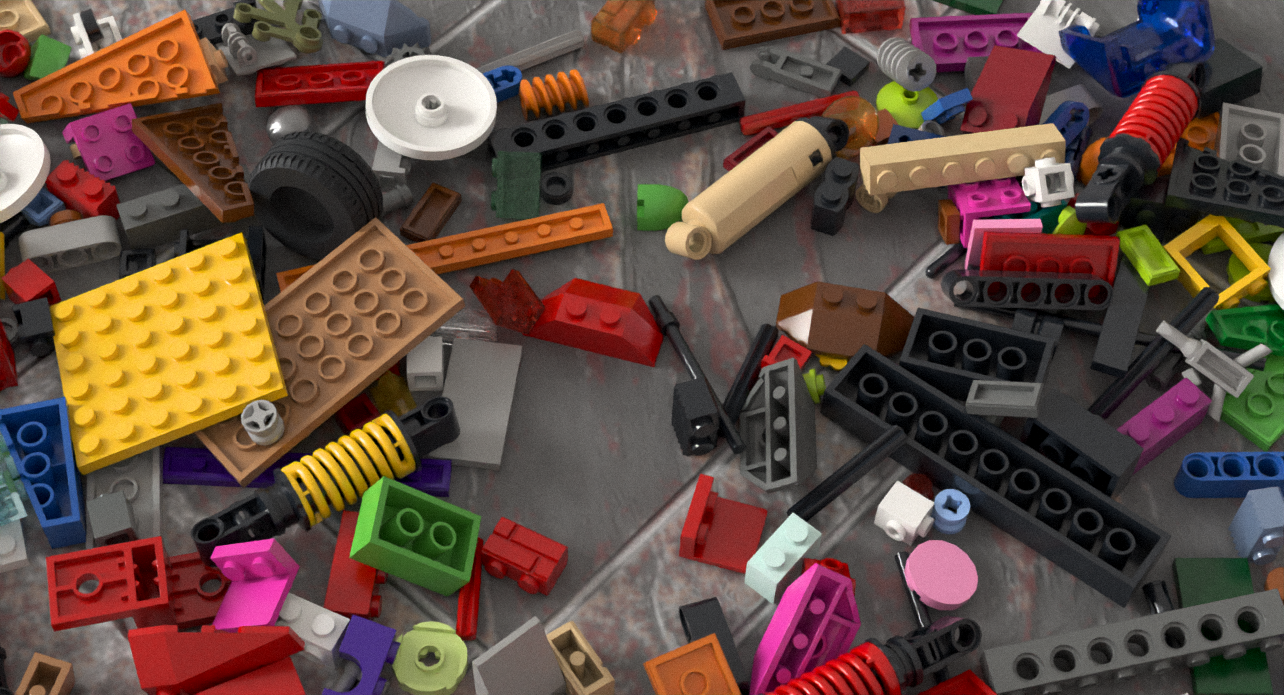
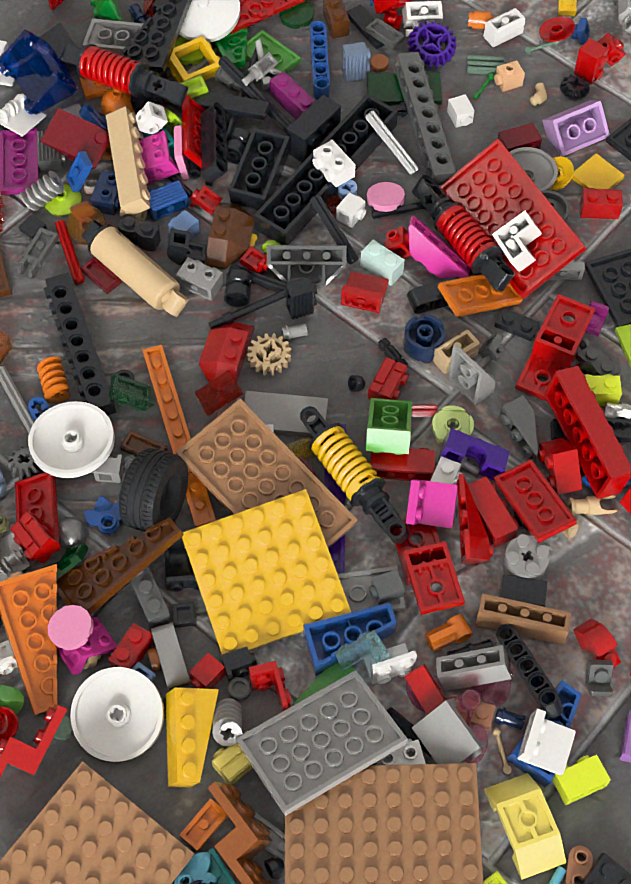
camera: 90 degrees left, 5 degrees up
(30, 628) = (453, 631): none -> orange piece
(114, 108) = (70, 627): none -> bright pink tile
(227, 107) = (70, 559): none -> dark green tile
(254, 421) = (327, 500): light grey wheel -> none
(270, 70) = (35, 538): none -> red brick
(529, 508) = (356, 383): none -> black hinge
(587, 572) = (390, 351): none -> black axle
(590, 378) = (269, 354): none -> tan gear
(611, 614) = (422, 337): none -> dark blue brick
(637, 412) = (294, 331): none -> light grey pin
(659, 206) = (144, 324): bright green brick -> none
(711, 337) = (238, 288): none -> black wheel
(745, 281) = (200, 278): none -> light grey brick
(800, 252) = (181, 248): none -> black brick
(850, 258) = (185, 222): none -> medium blue brick
(908, 233) = (167, 200): none -> blue brick
(914, 288) = (205, 199): none -> red bracket
(948, 221) = (158, 178): dark orange tile -> none
(978, 461) = (333, 163): none -> white brick
(1005, 398) = (293, 150): dark grey tile -> none
(1057, 577) = (392, 142): none -> axle

